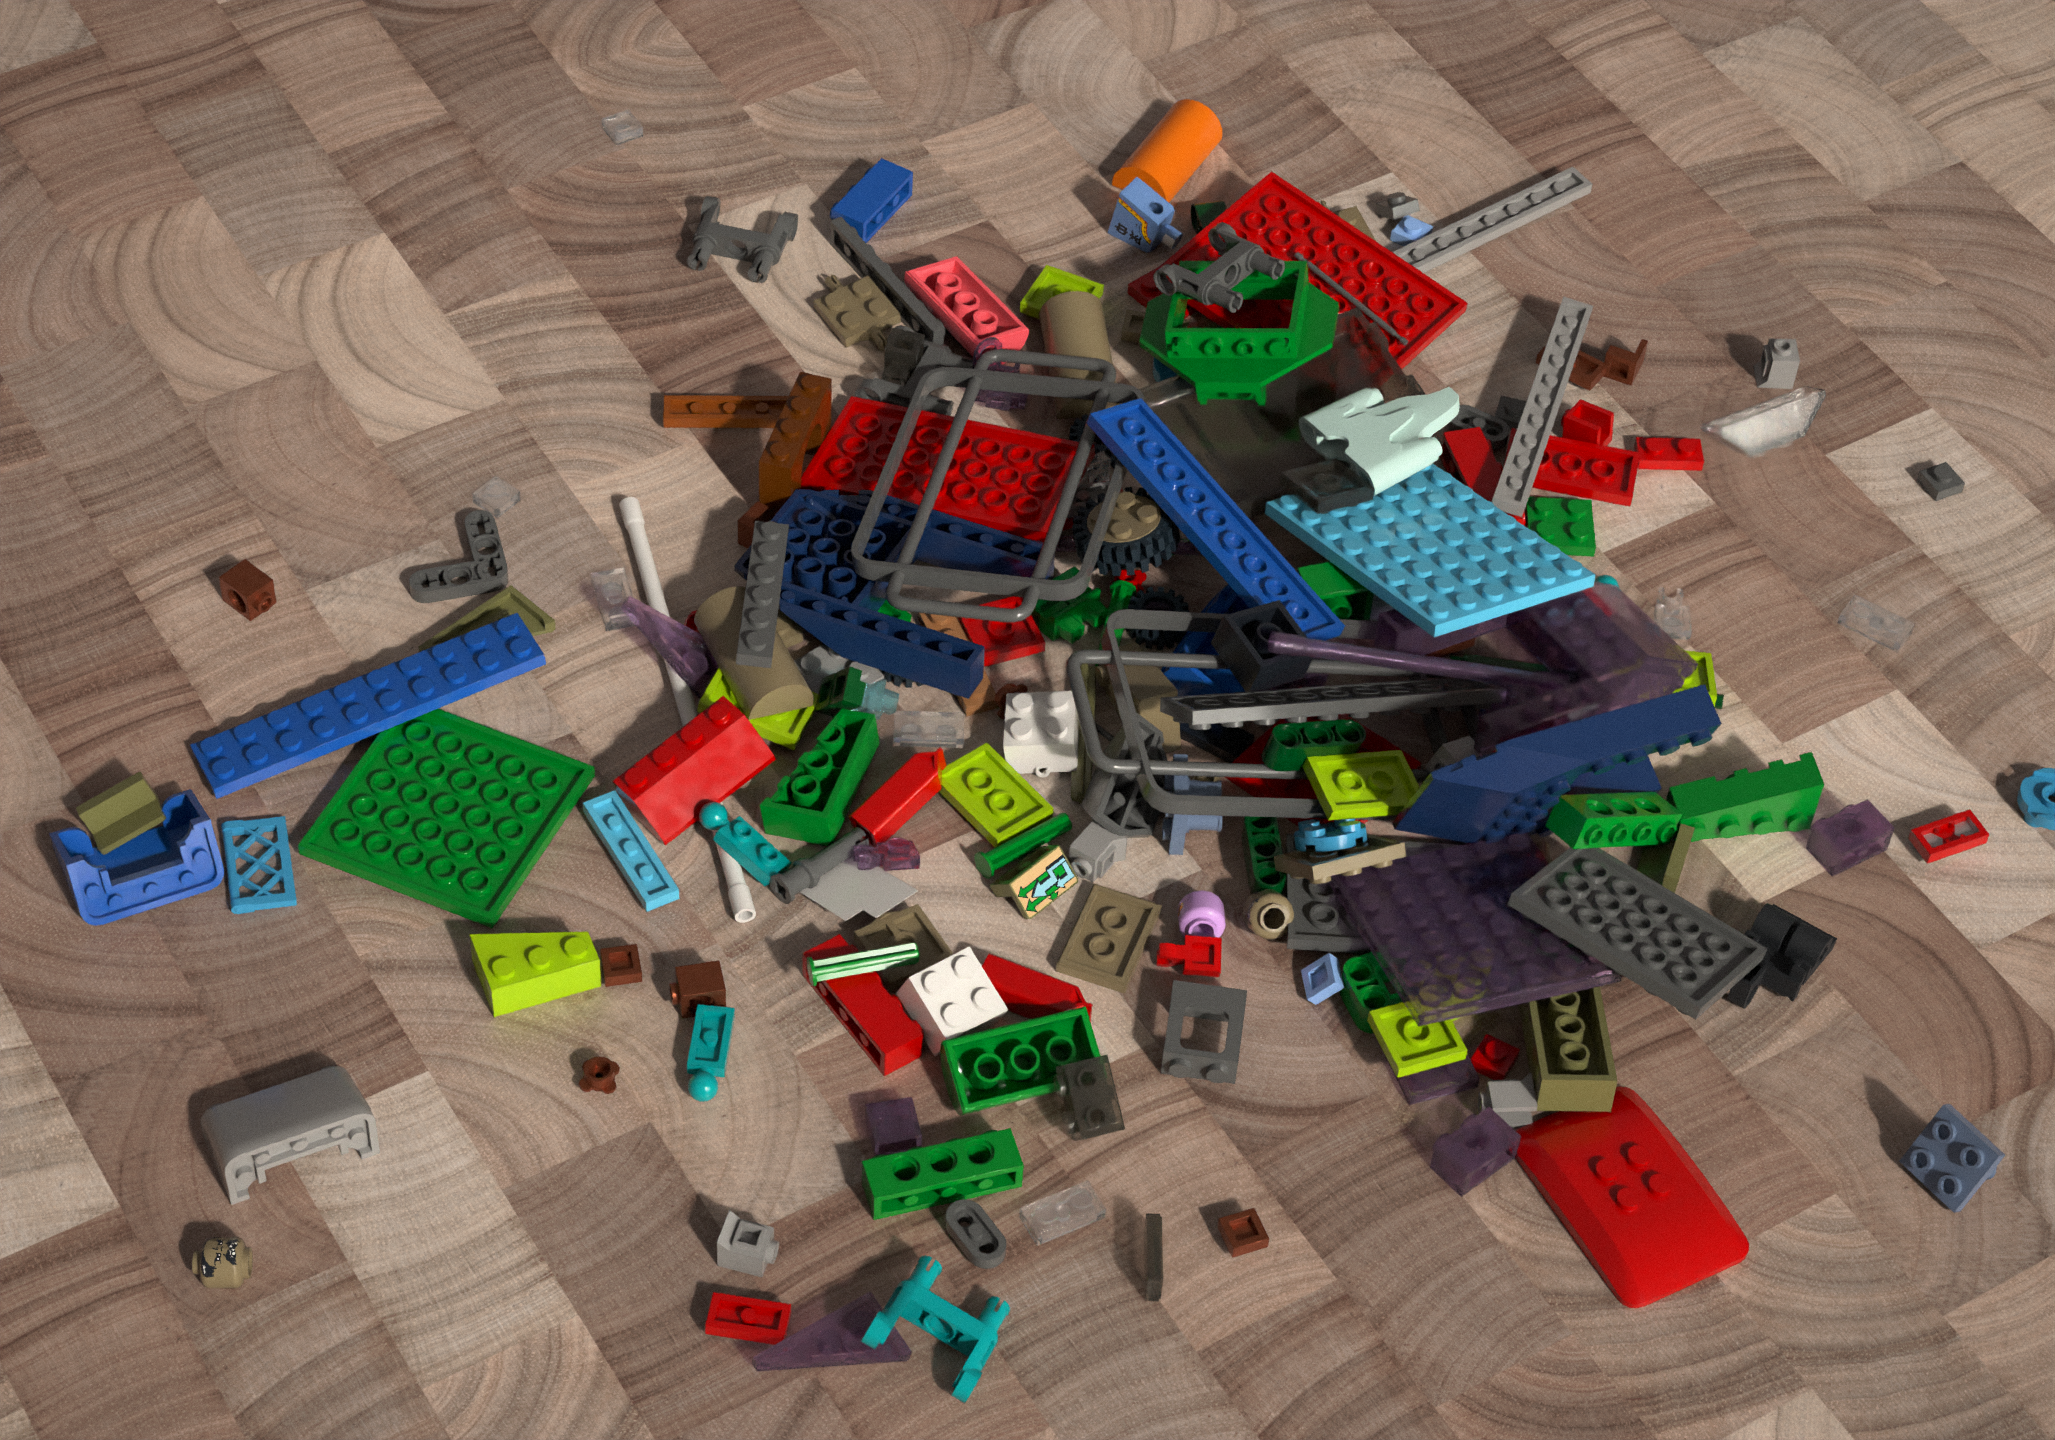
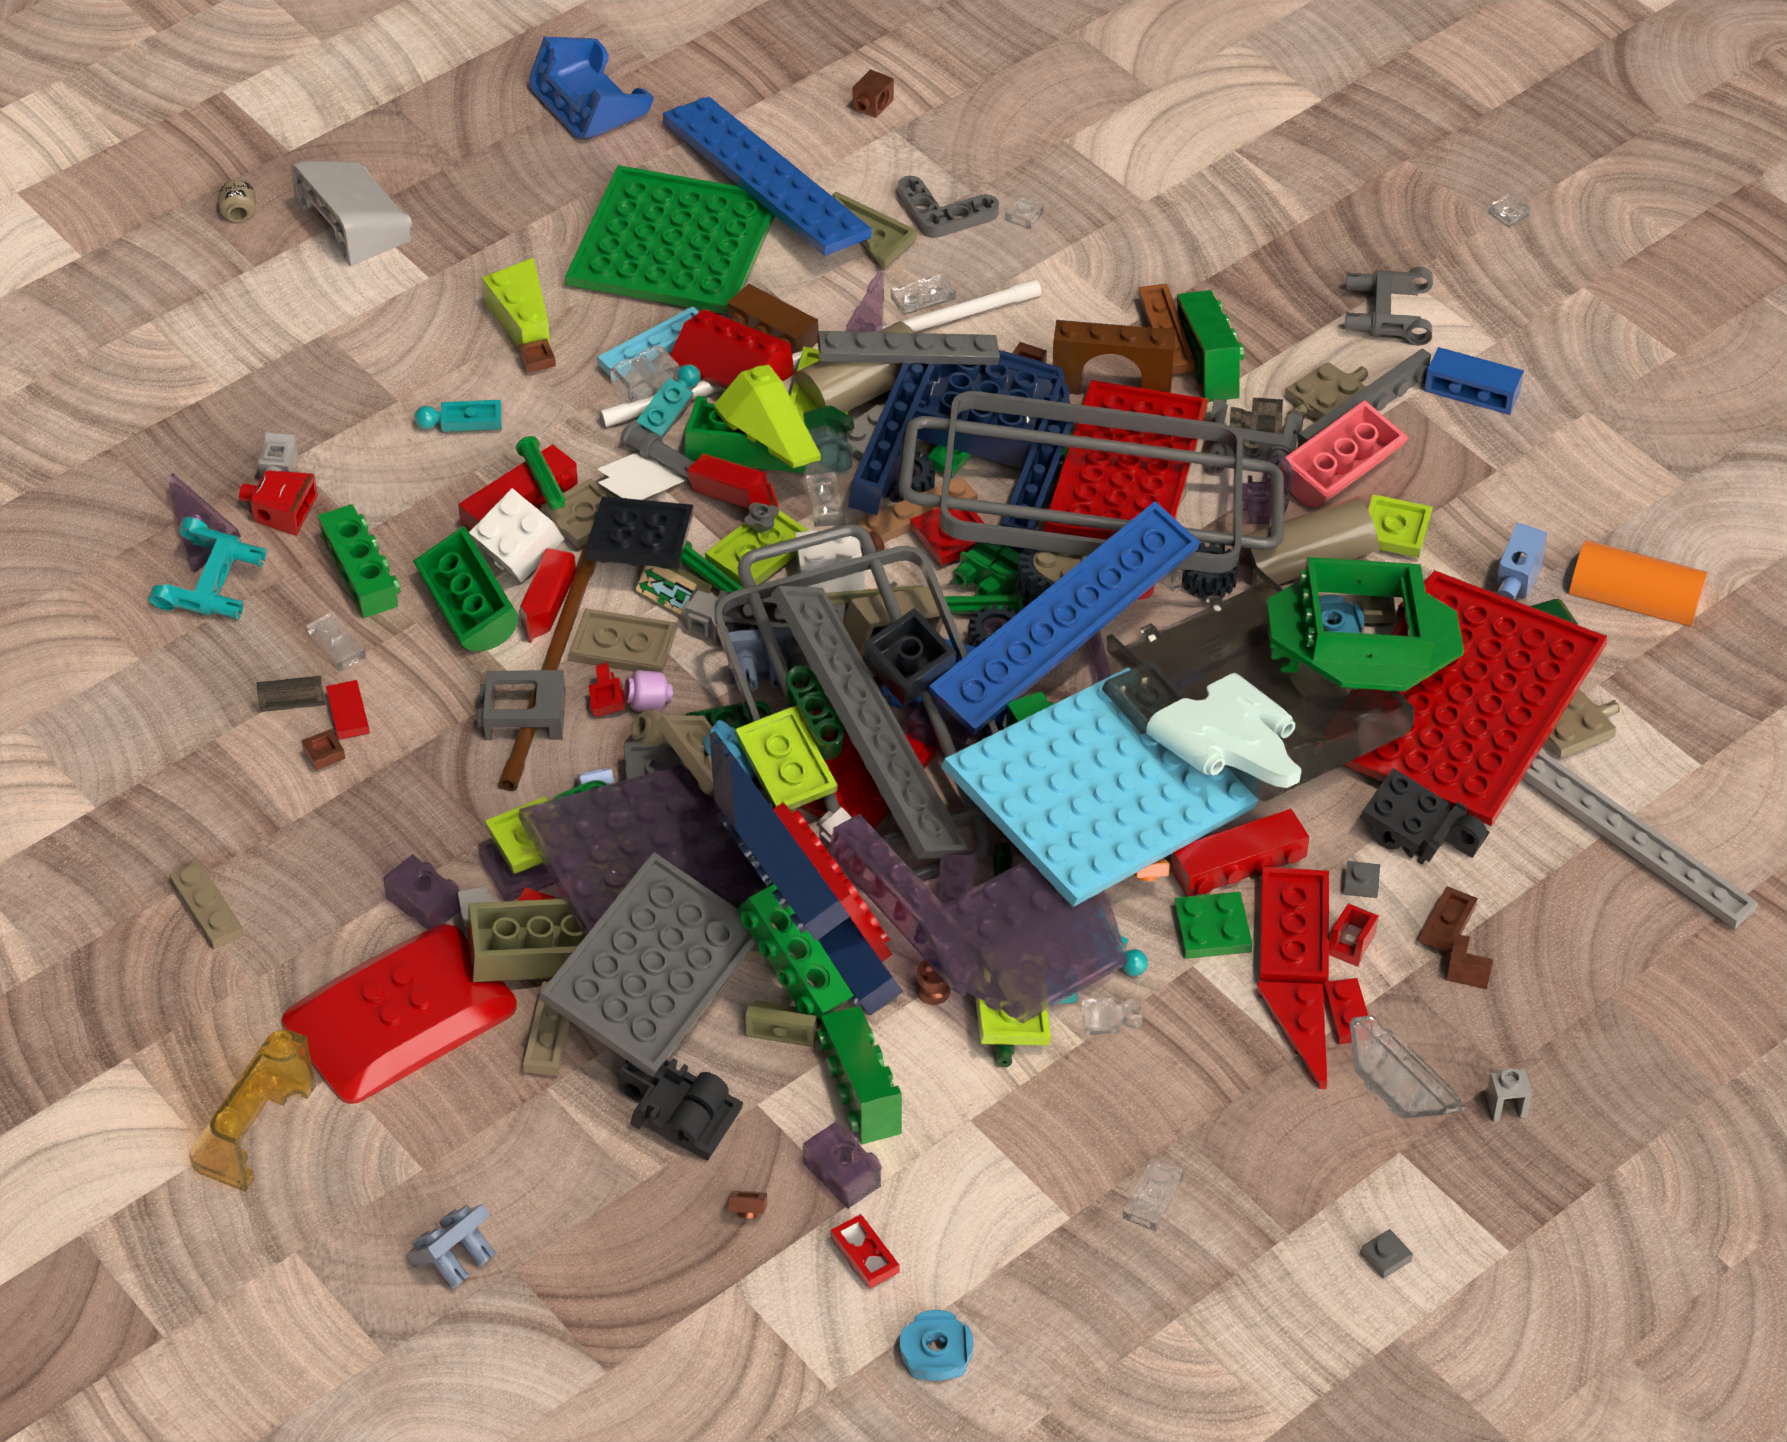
camera: 85 degrees right, 0 degrees up
(122, 812) = (629, 71): olive panel -> none
(253, 830) = (597, 170): dark azure window -> none
(599, 1067) = (431, 361): copper plate -> none
(628, 734) = (773, 317): none -> reddish brown brick
(689, 861) = (643, 375): none -> clear brick
(698, 985) = (518, 400): copper brick -> none
(747, 1318) = (214, 471): red plate -> none
(765, 369) = (1211, 344): none -> green wedge
(820, 1246) = (281, 499): none -> red torso
(824, 735) = (766, 413): none -> lime wedge
(891, 855) = (675, 490): plate -> none
(893, 1126) = (404, 530): clear purple piece -> none
(961, 778) = (761, 517): none -> dark grey plate
(976, 882) = (639, 532): none -> black plate
(978, 1236) = (304, 588): dark grey plate -> none
(1088, 1098) = (432, 630): clear smoke brick -> none
(1178, 1206) = (347, 709): none -> red tile
(1212, 284) = (1412, 591): dark grey connector -> none
(1286, 1053) = (516, 762): none -> reddish brown piece
(1300, 646) = (895, 665): clear purple piece -> none
(1352, 299) = (1456, 722): dark grey piece -> none
(1397, 206) = (1634, 763): dark grey plate -> none
(1410, 230) = (1607, 780): light blue plate -> none
(1458, 352) = (1419, 820): none -> black plate
(1462, 1369) = (206, 905): none -> dark tan plate
(1491, 426) = (1325, 853): dark grey plate -> none
(1542, 407) = (1354, 880): light grey plate -> none
(1667, 1056) = (546, 1040): none -> dark tan plate
(1682, 486) = (1301, 1015): none -> red wing
(1784, 1331) = (273, 1074): none -> clear yellow windscreen
(1894, 916) = (747, 1203): none -> copper plate

